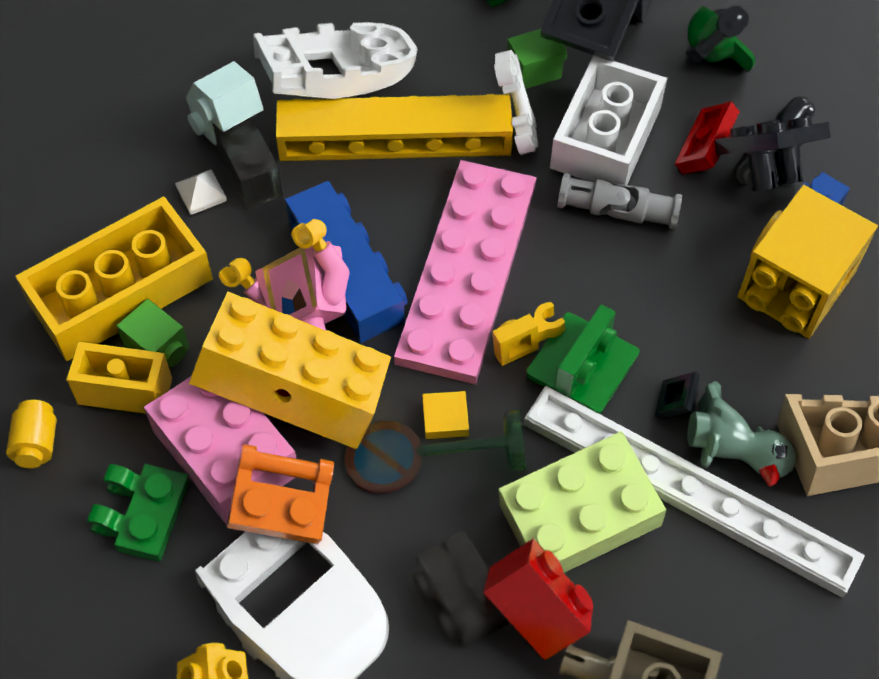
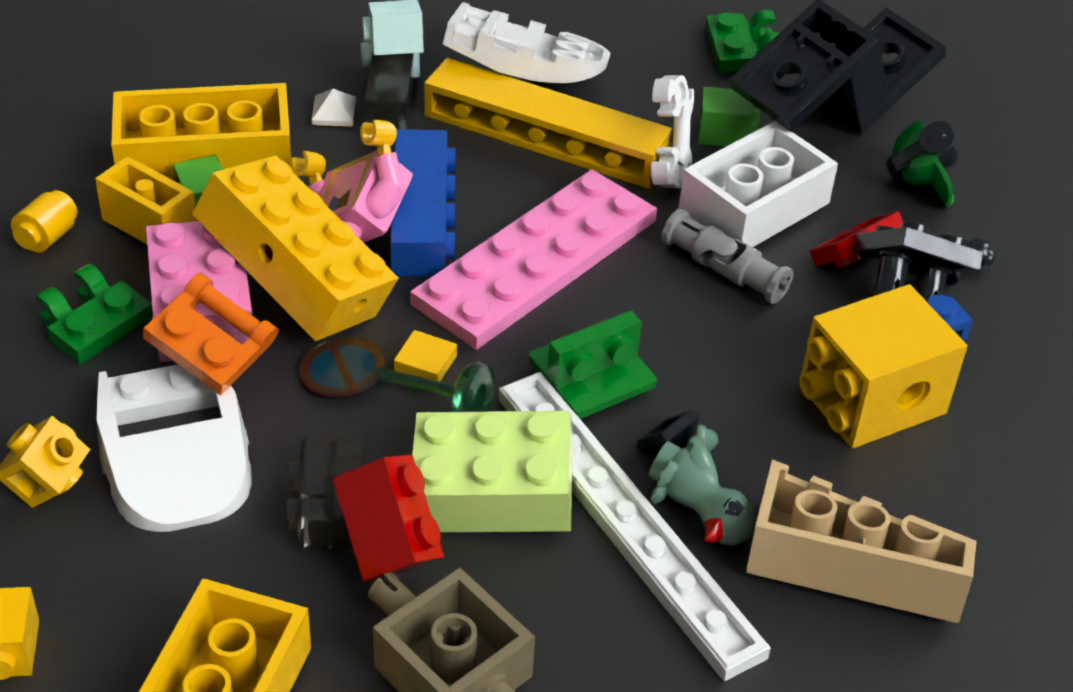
camera: 25 degrees right, 15 degrees down
(522, 336) = (541, 320): yellow plate -> none

